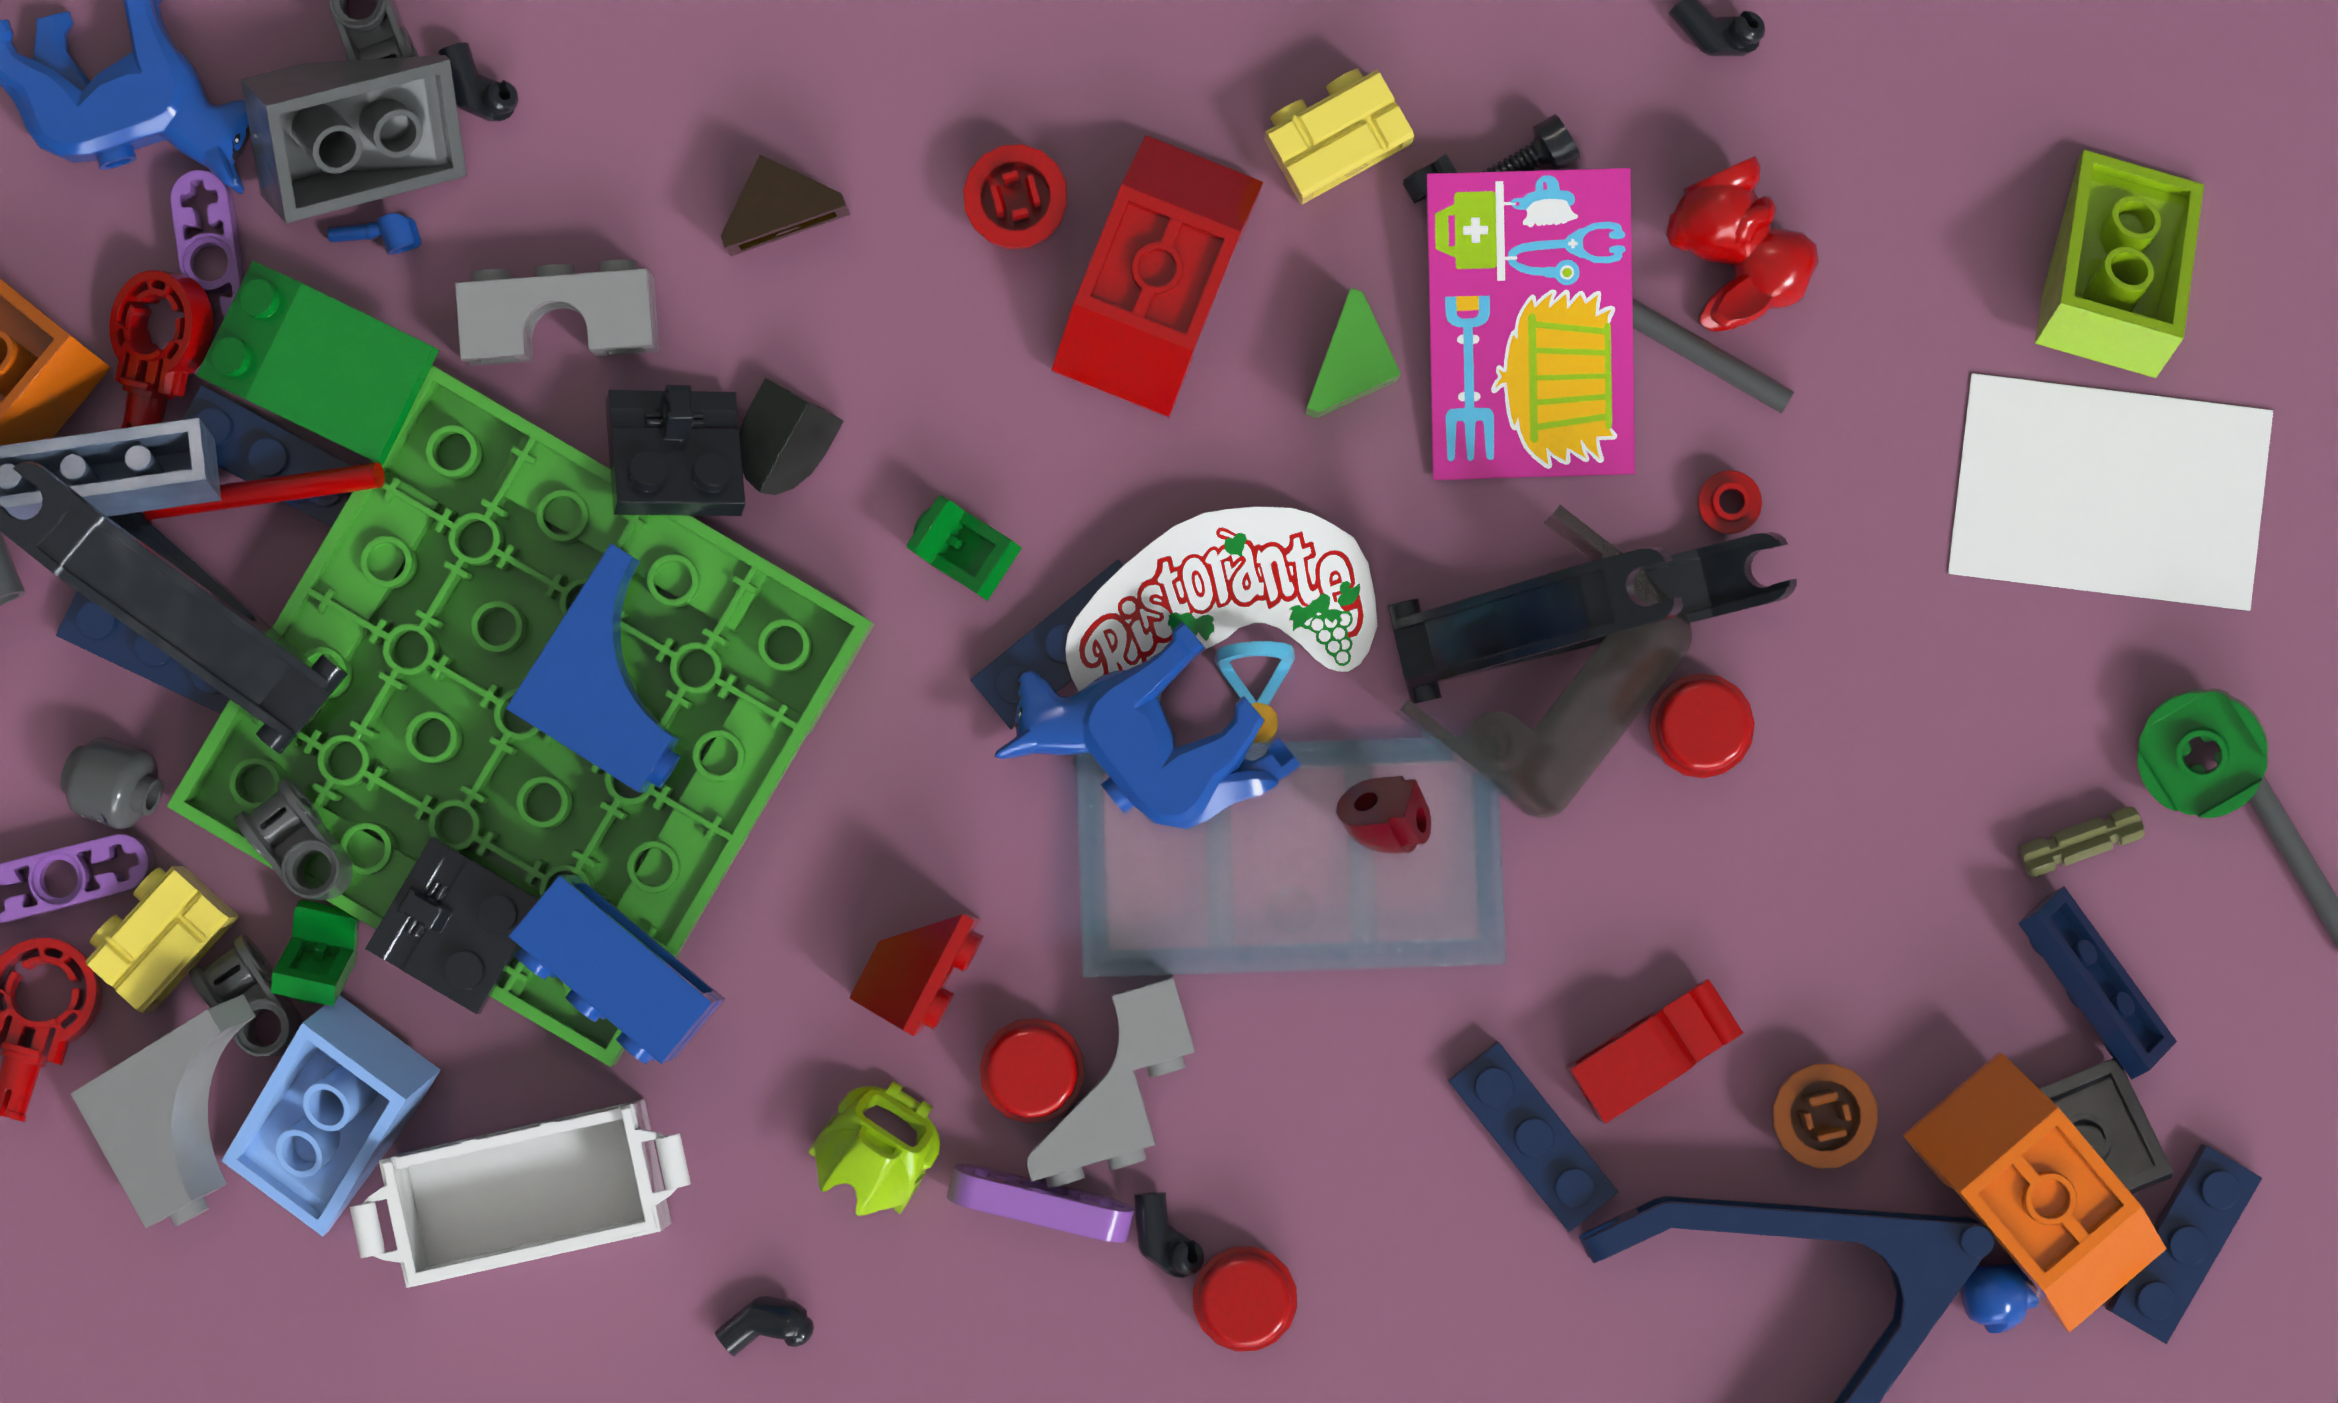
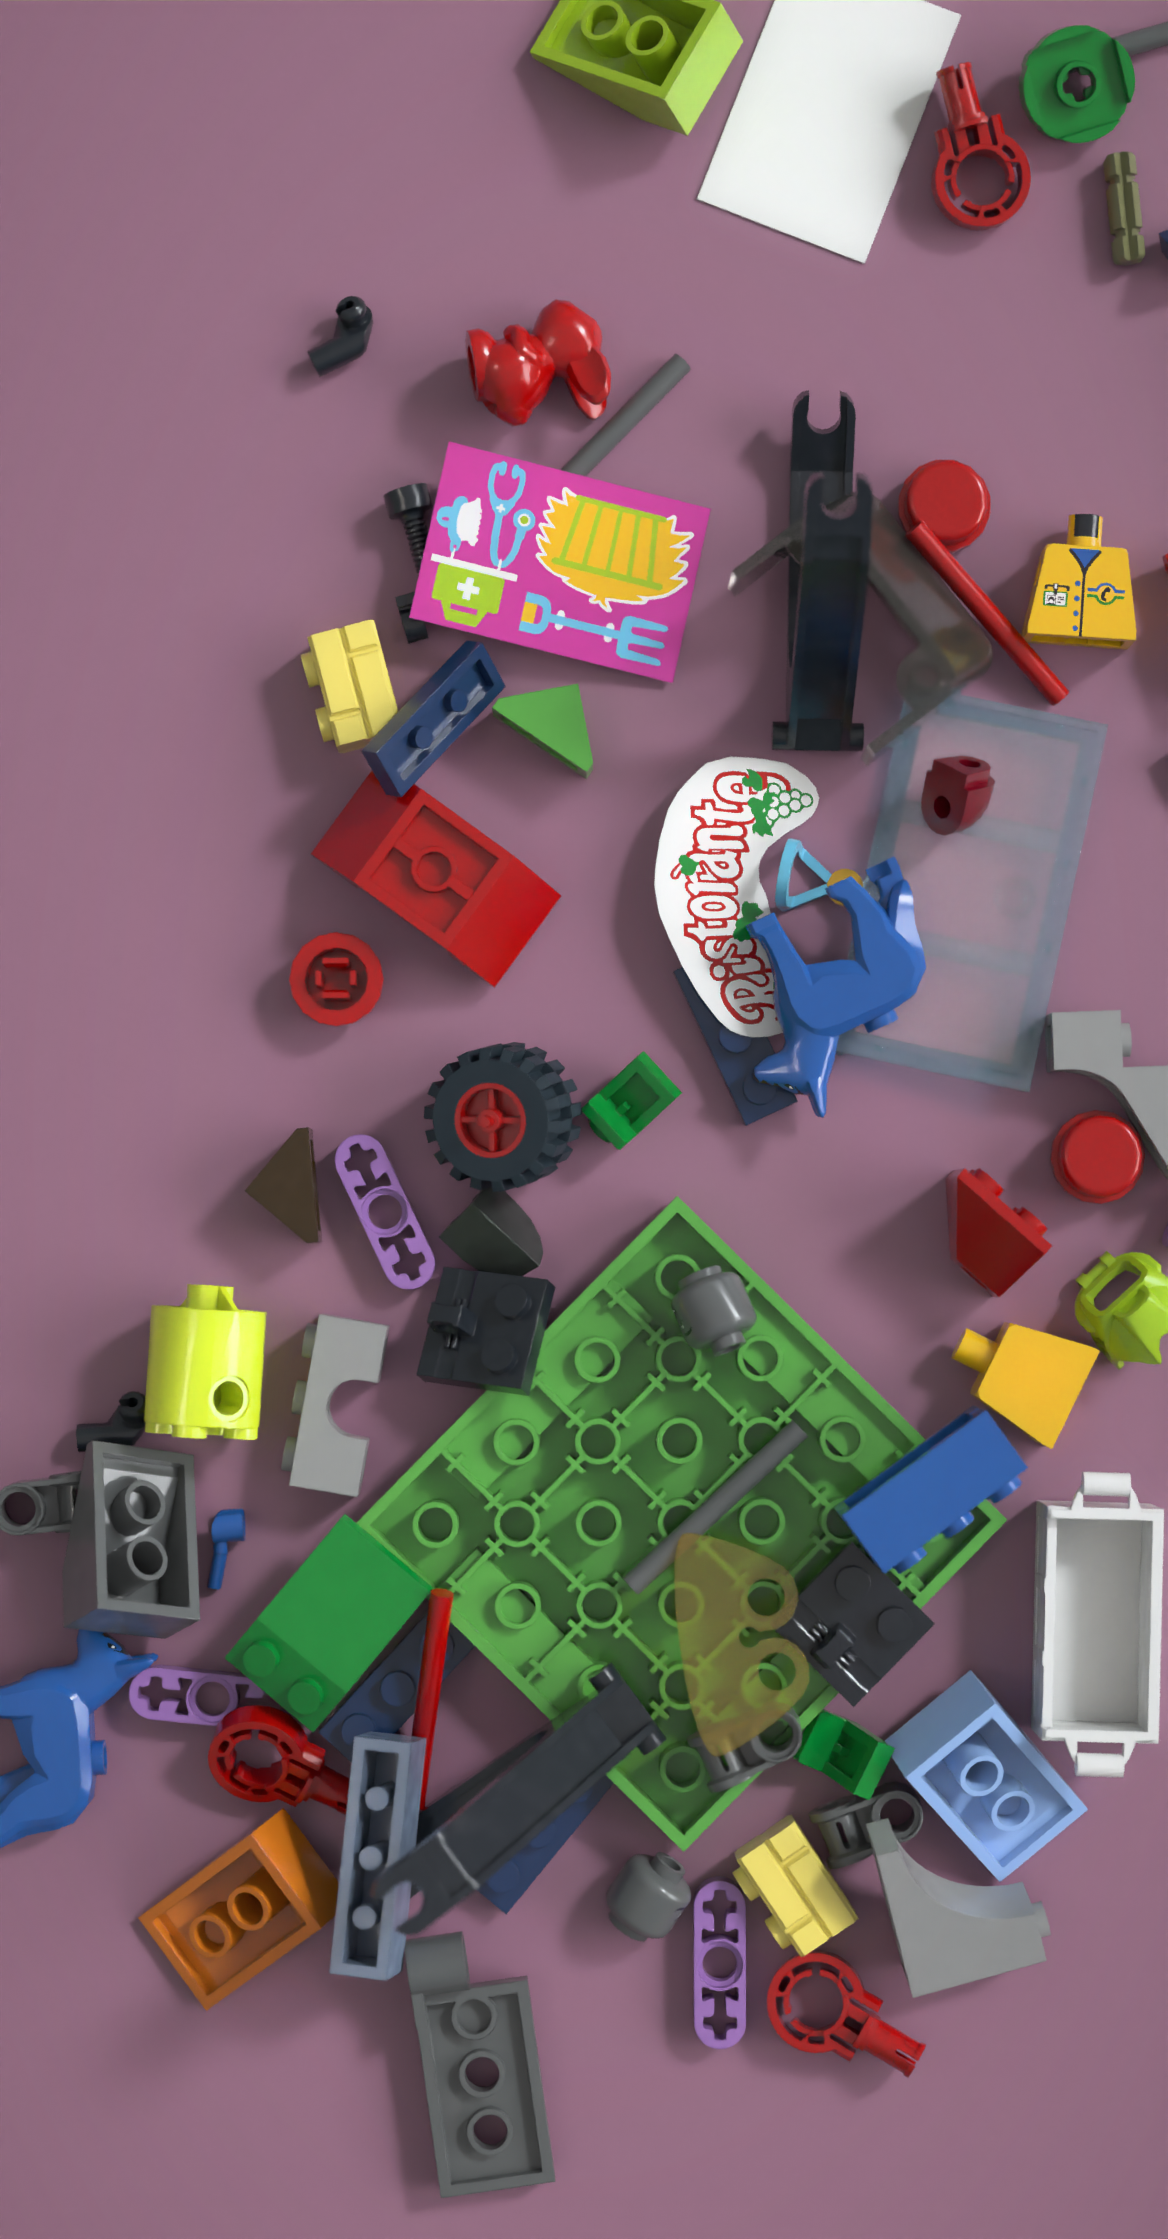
camera: 80 degrees left, 0 degrees up
(364, 793) = (718, 1670): none -> clear yellow piece
(543, 746) = (717, 1505): none -> dark grey bar
(560, 161) = (205, 1366): none -> neon yellow cylinder
(584, 690) = (683, 1458): blue arch -> none
(754, 689) = (713, 1310): none -> dark grey head
(773, 1052) = (1027, 1376): none -> yellow torso
(807, 274) = (379, 1168): none -> medium lavender beam
(910, 411) = (502, 1116): none -> black wheel
(1322, 227) = (433, 718): none -> dark blue plate
(1594, 800) = (987, 613): none -> red bar
(1645, 898) = (1081, 592): none -> yellow torso
(1710, 508) = (753, 449): red plate -> none
(2135, 640) = (966, 117): none -> red pin

